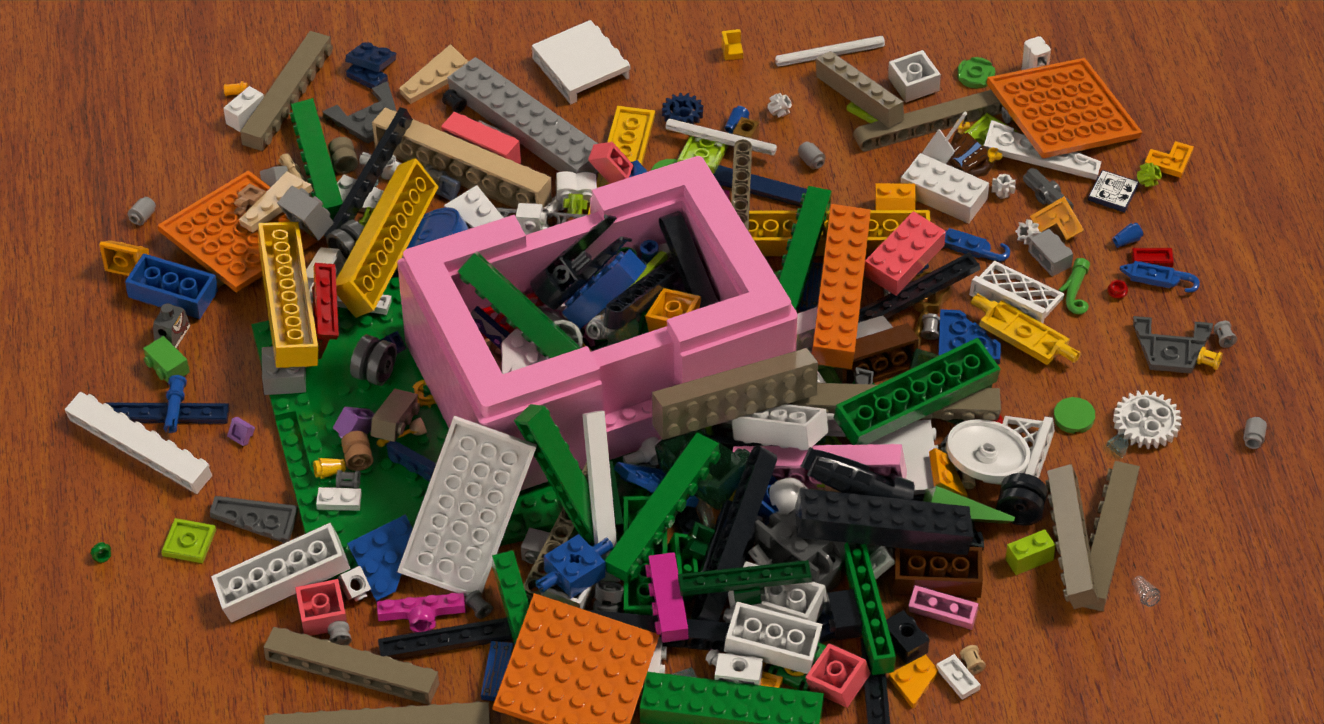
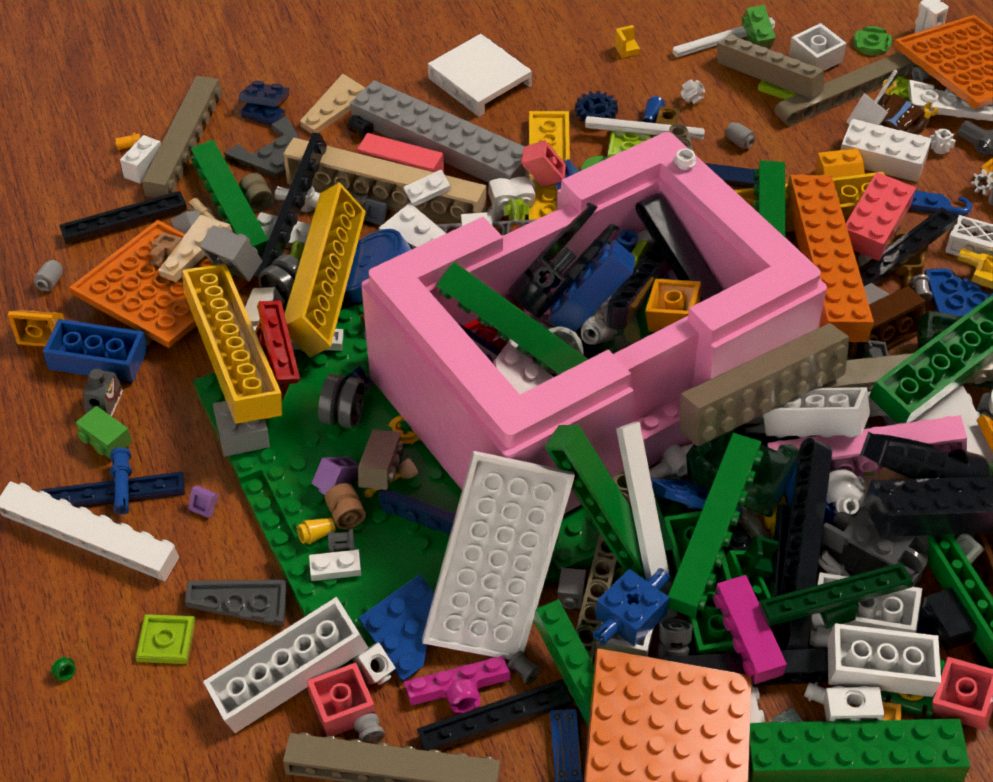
camera: 10 degrees left, 0 degrees up
(218, 163) = (123, 217): none -> black plate
(495, 173) = (427, 188): none -> white plate
(704, 184) = (685, 159): none -> white plate
(781, 507) = (847, 505): none -> white axle
(862, 47) = (758, 26): none -> bright green brick

